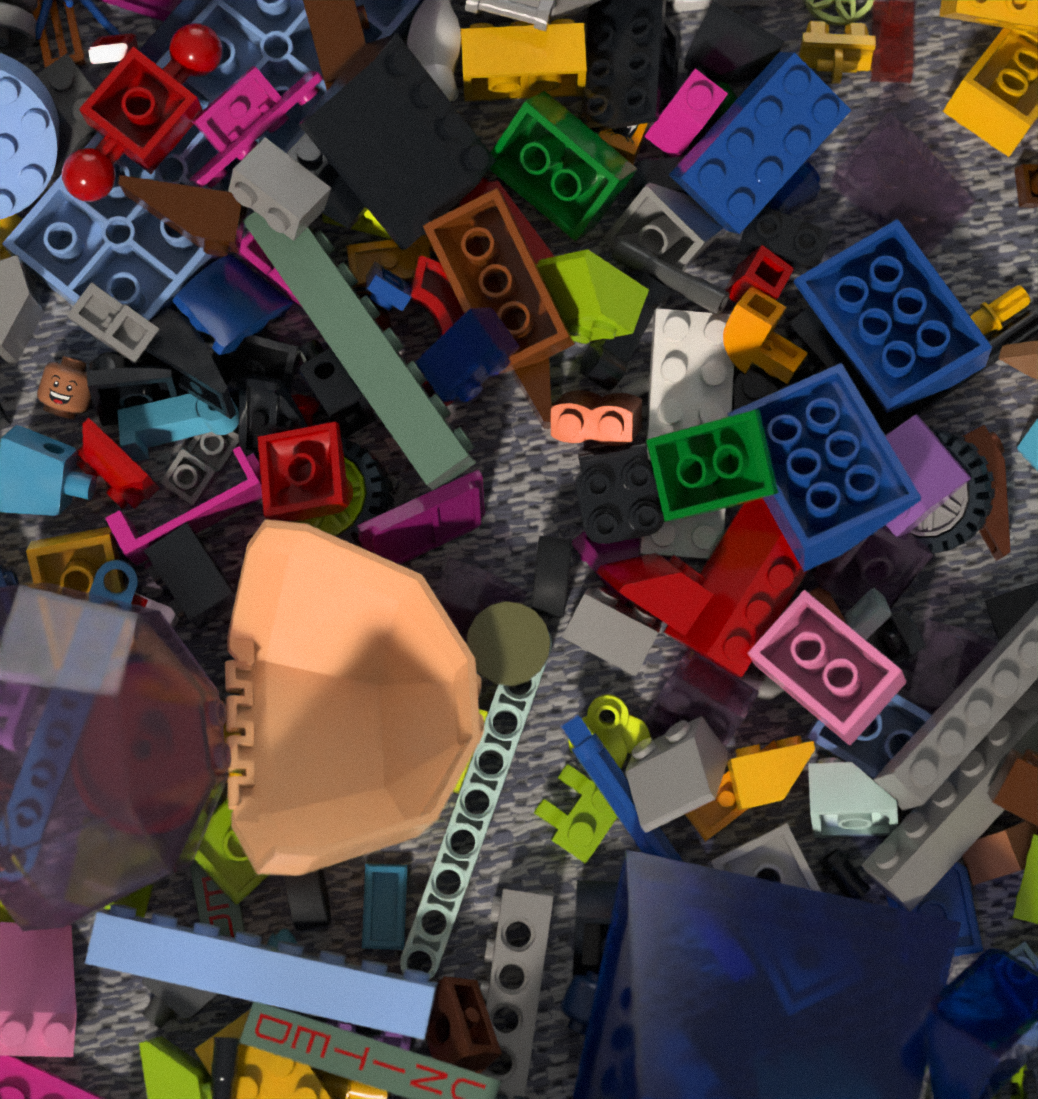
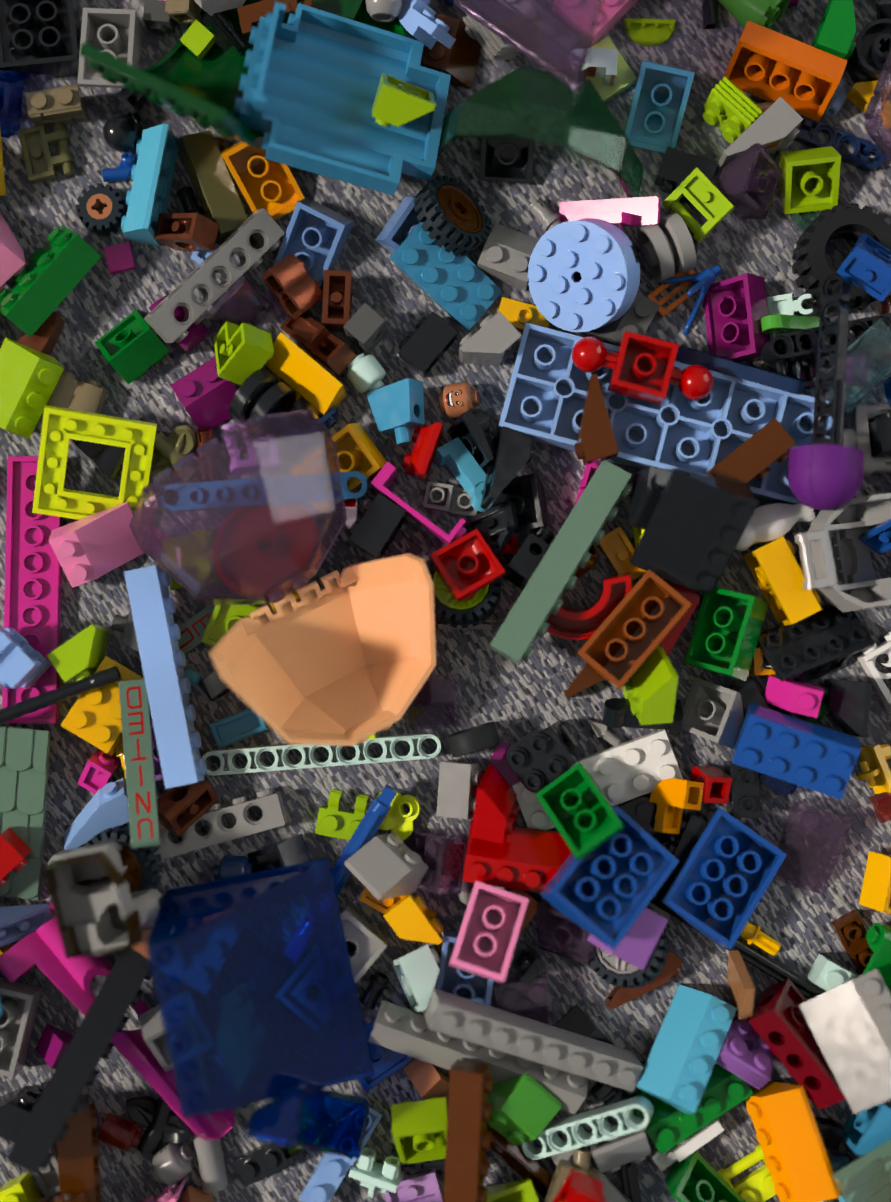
camera: 70 degrees right, 5 degrees up
(112, 48) = (677, 330): tile -> none
(112, 323) = (507, 410): light grey slope -> none
(230, 303) = (551, 473): blue slope -> none
(244, 115) = (669, 430): dark pink bracket -> none
(278, 189) = (630, 473): light grey brick -> none
(387, 288) = (602, 564): blue plate -> none
(426, 520) = (471, 649): magenta piece -> none
(468, 355) = (581, 633): clear blue brick -> none
(509, 643) = (421, 732): olive tile -> none
(605, 419) = (580, 718): brick -> none
(691, 286) = (687, 747): dark grey piece -> none
(868, 614) = (534, 940): light aqua tile -> none

